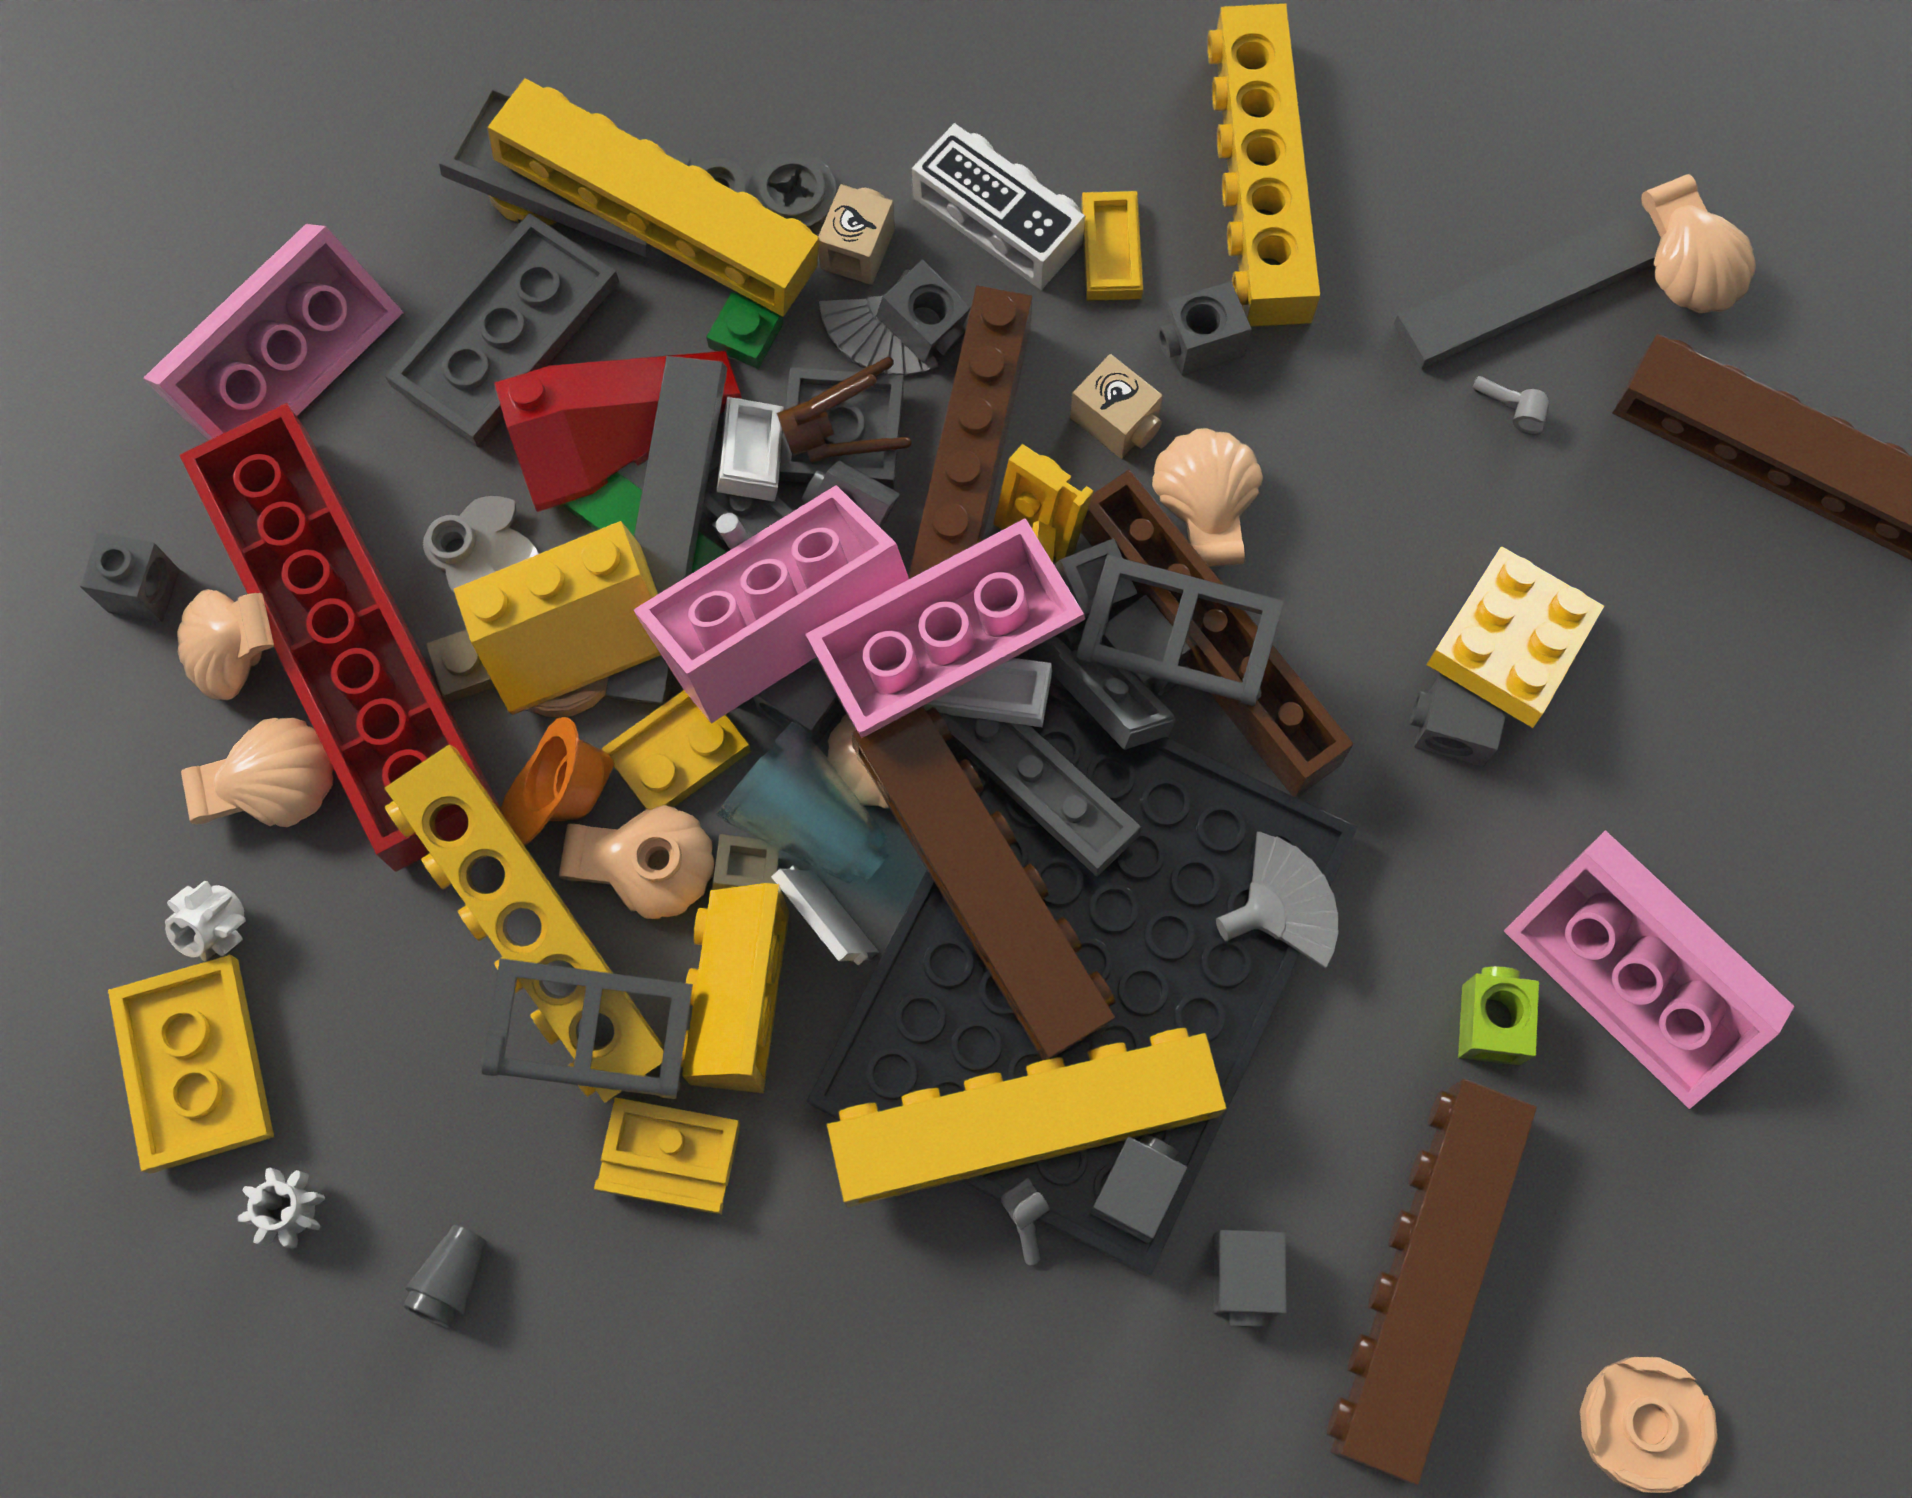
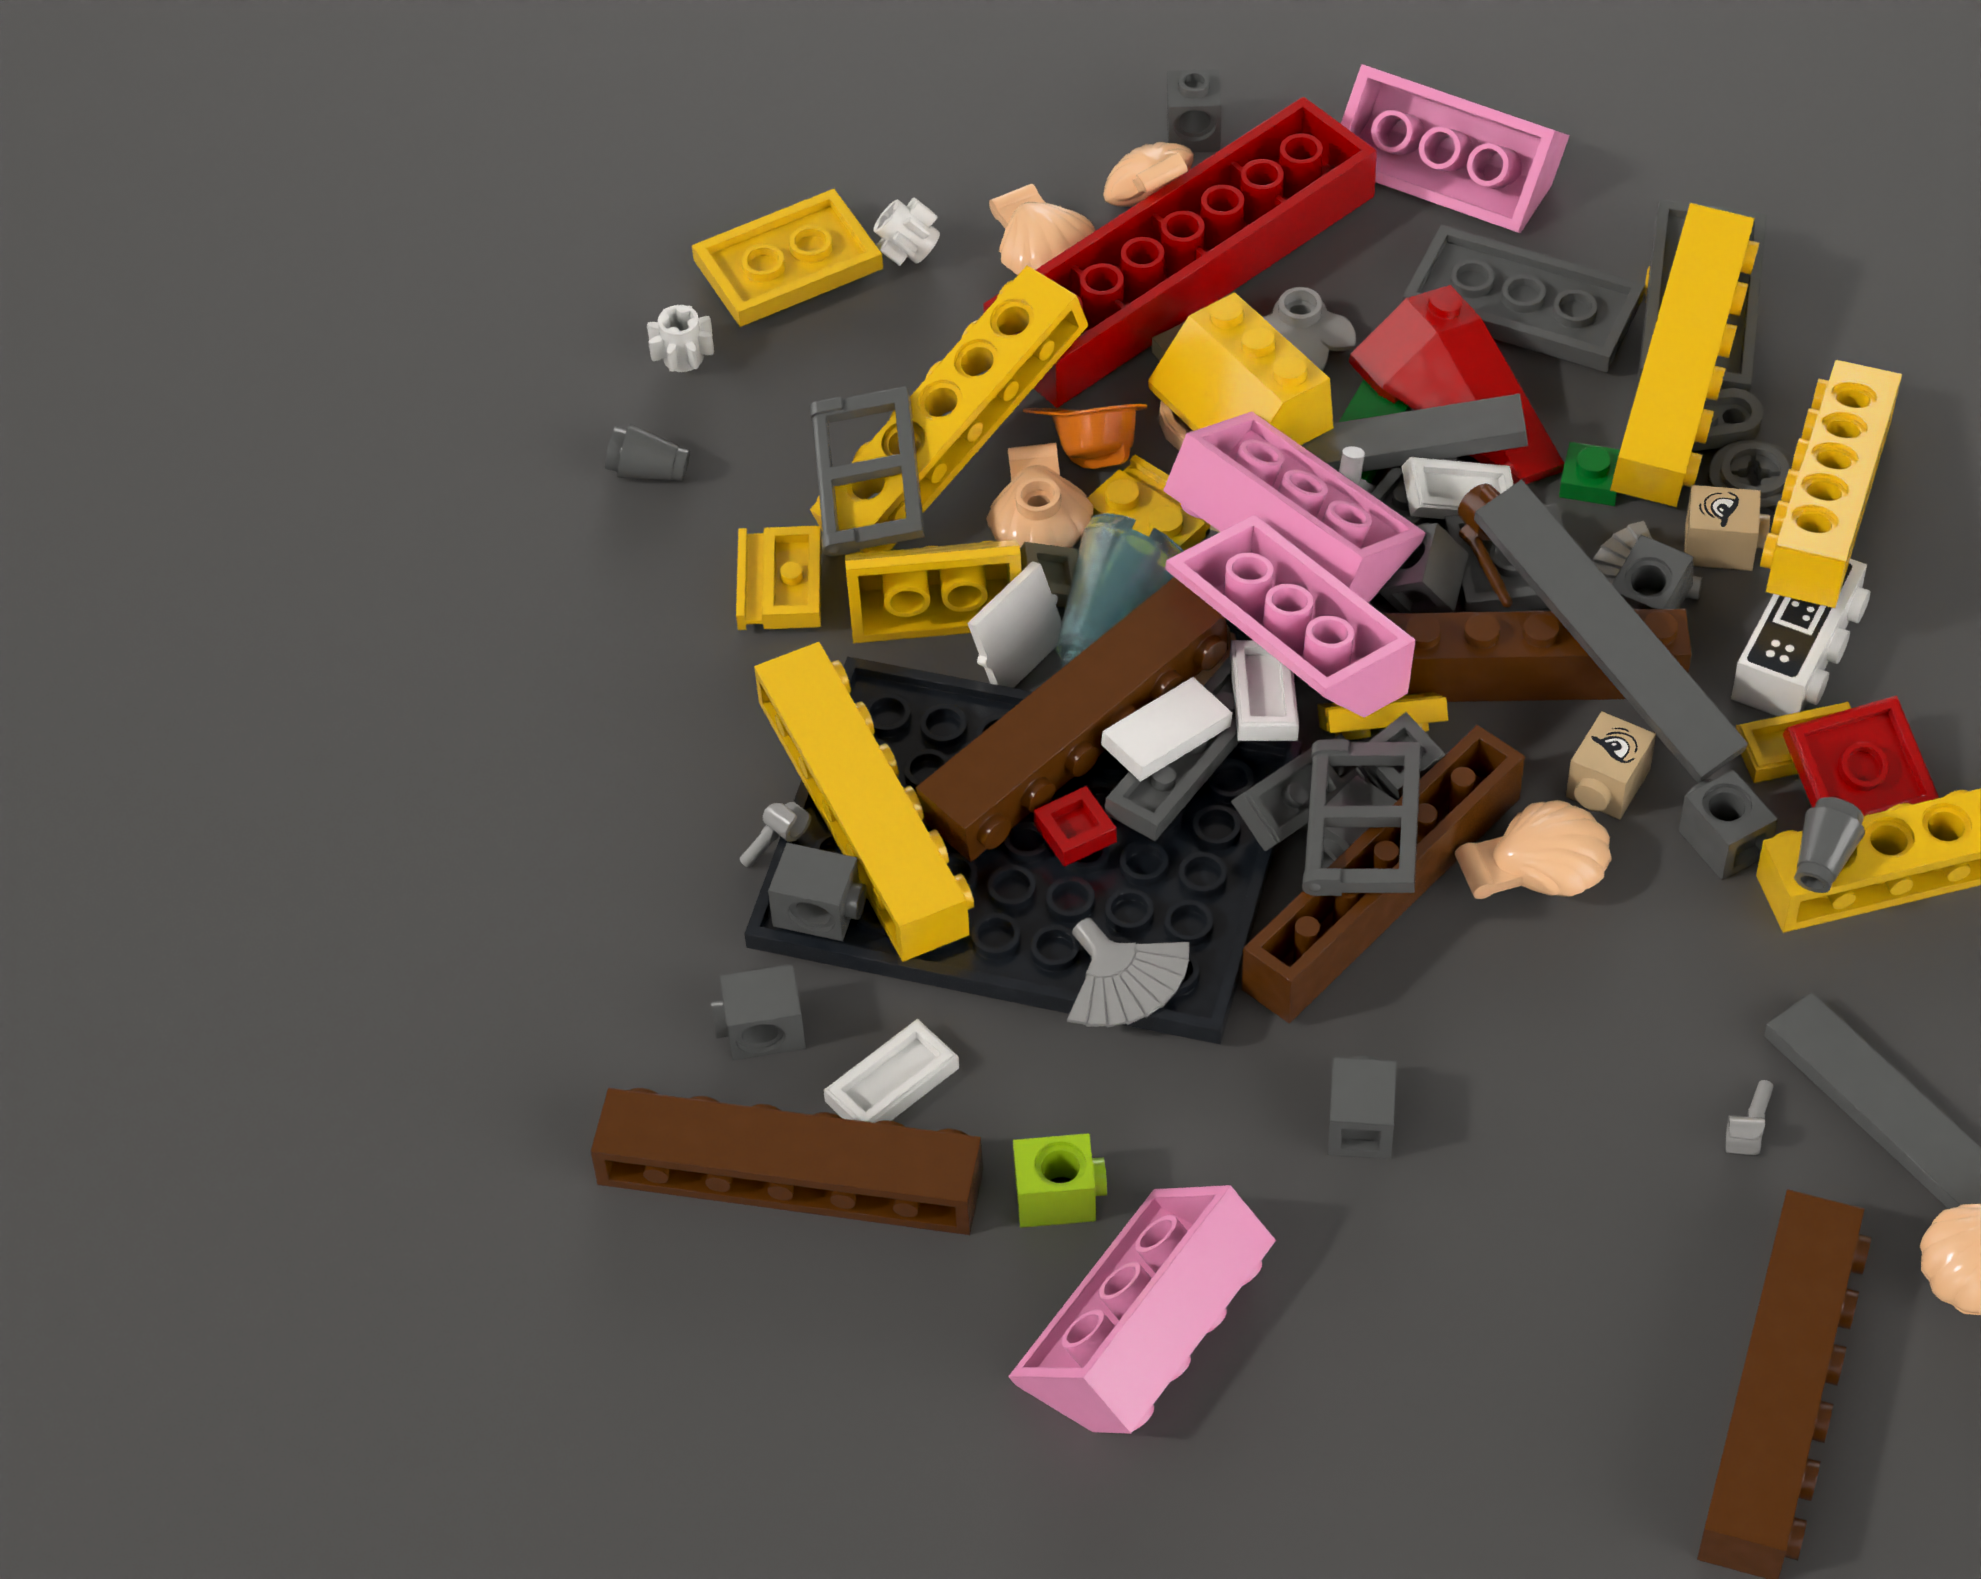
camera: 80 degrees right, 20 degrees down
(857, 117) = (1829, 483): none -> yellow brick
(1000, 354) = (1610, 631): none -> dark grey tile
(1026, 790) = (1166, 729): none -> white tile
(1041, 492) = (1477, 697): yellow plate -> none
(1104, 908) = (1075, 826): none -> red plate
(1165, 203) = (1861, 758): none -> red plate
(1286, 244) = (1827, 842): none -> dark grey cone
(1337, 1156) = (892, 1076): none -> white tile
(1516, 636) = (1466, 1132): plate -> none
(1648, 1424) = (686, 1373): light nougat tile -> none

